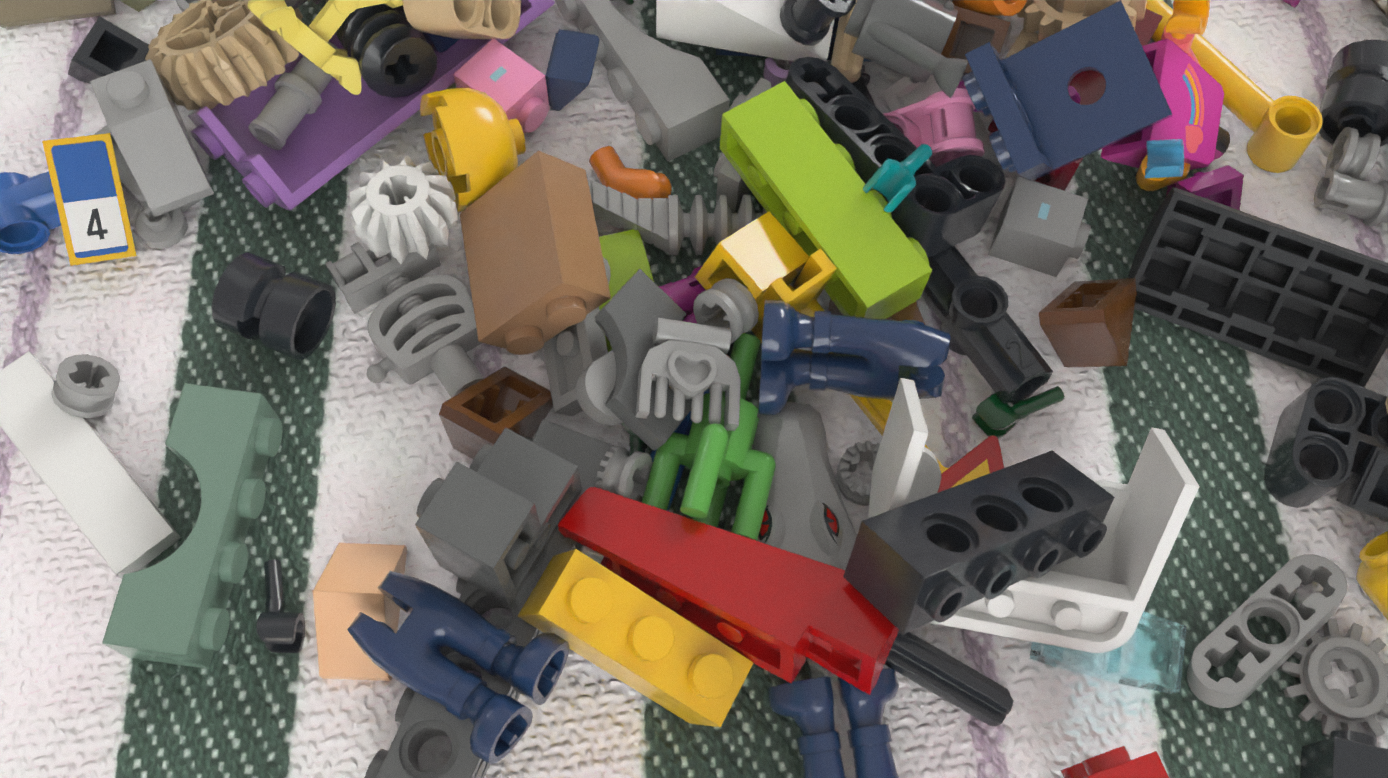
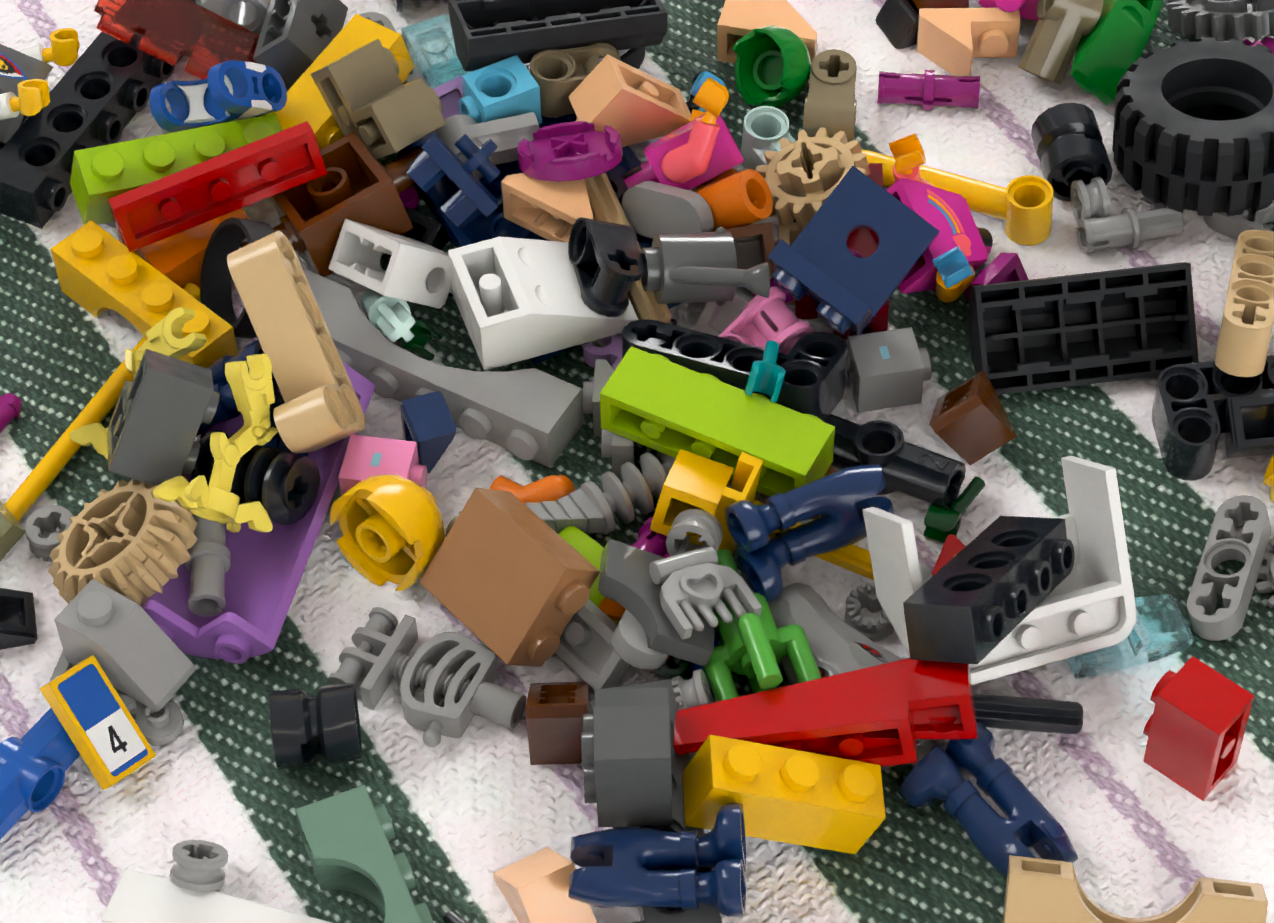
camera: 25 degrees left, 15 degrees down
(403, 209) = (377, 596): white gear -> none

